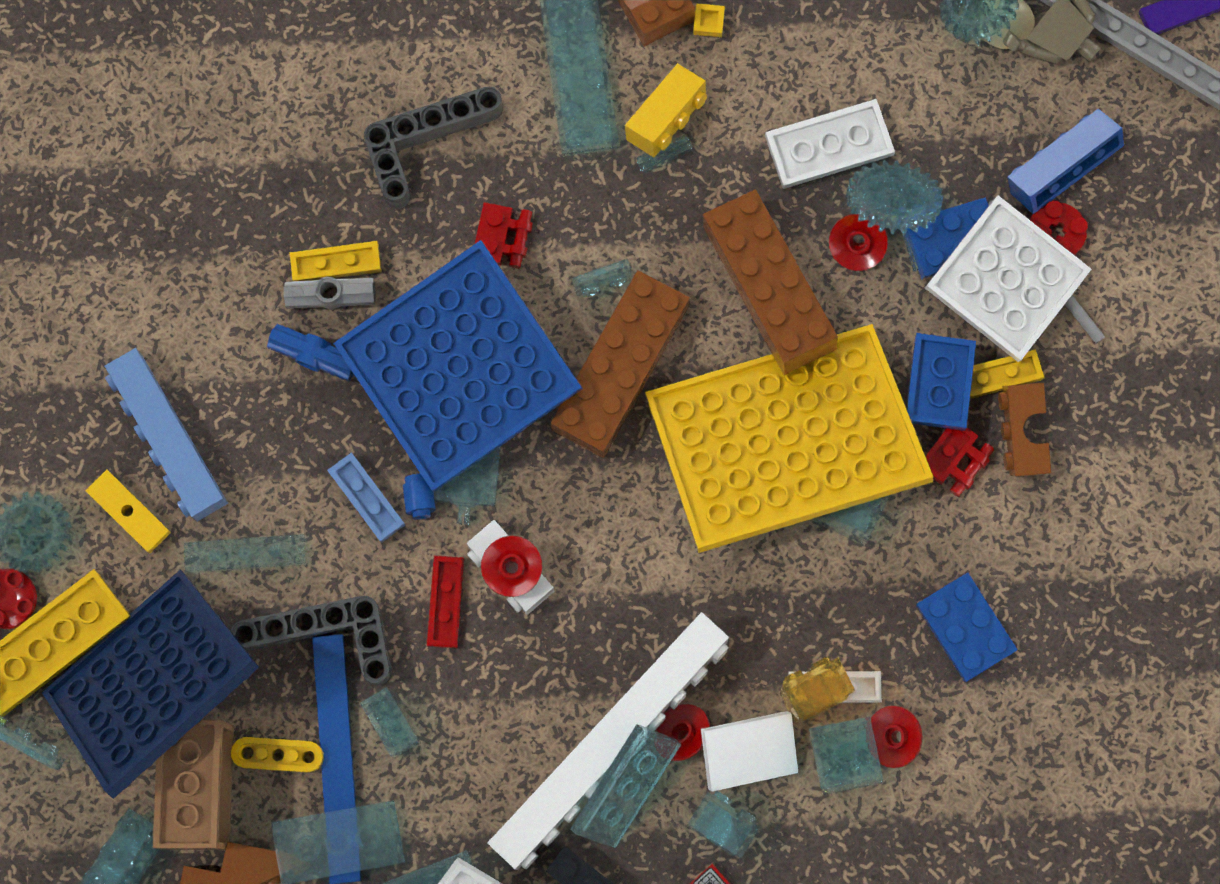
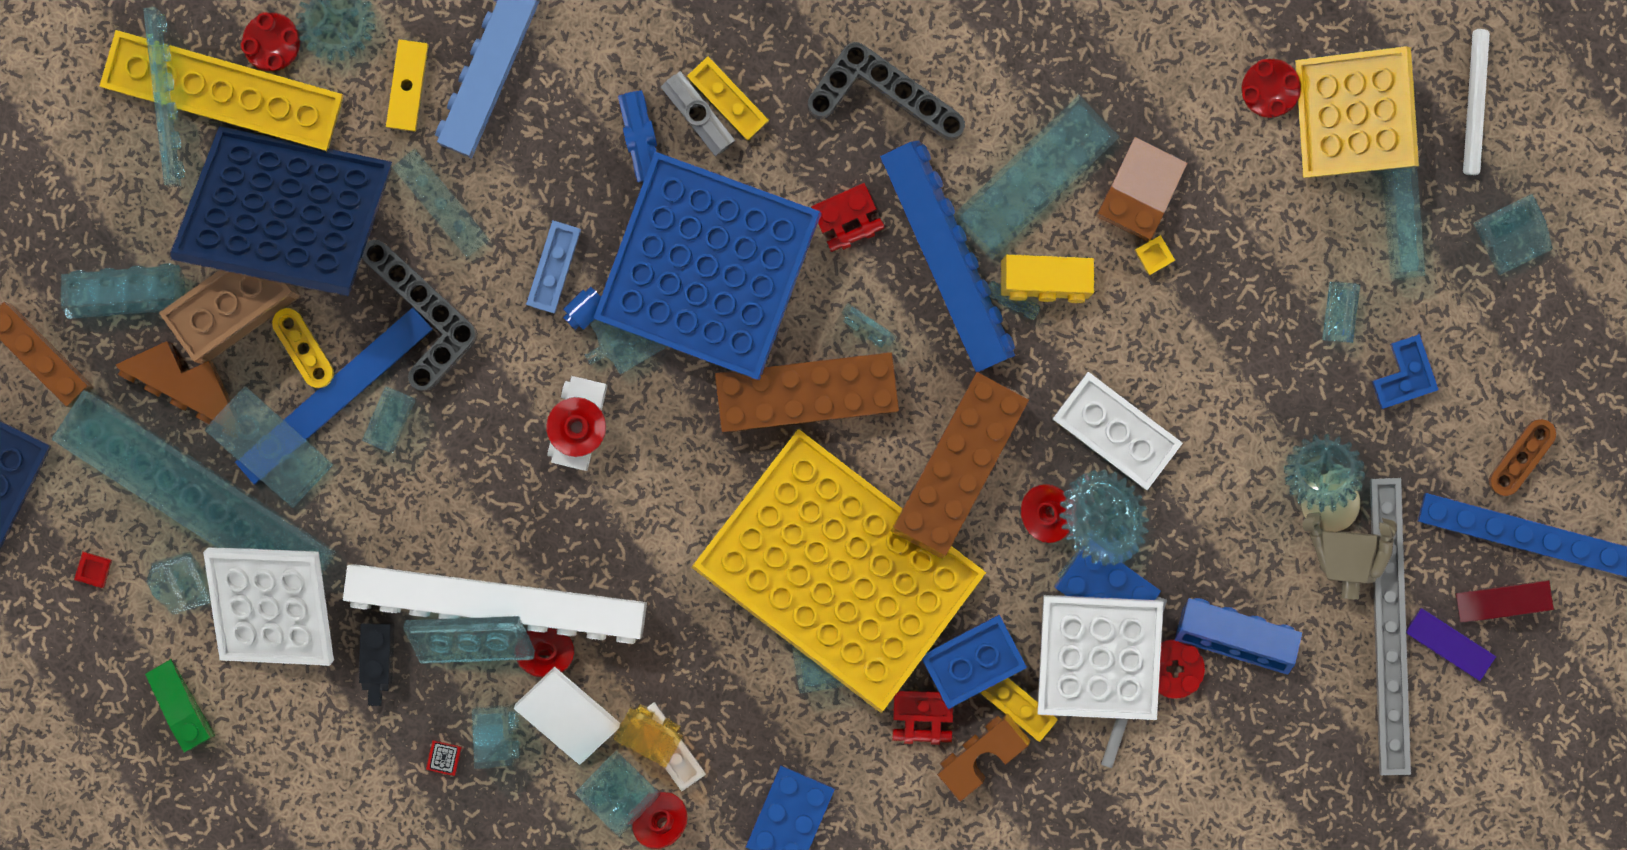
camera: 50 degrees right, 10 degrees up
(445, 602) = (516, 391): red tile -> none
(591, 175) = (948, 255): none -> blue brick

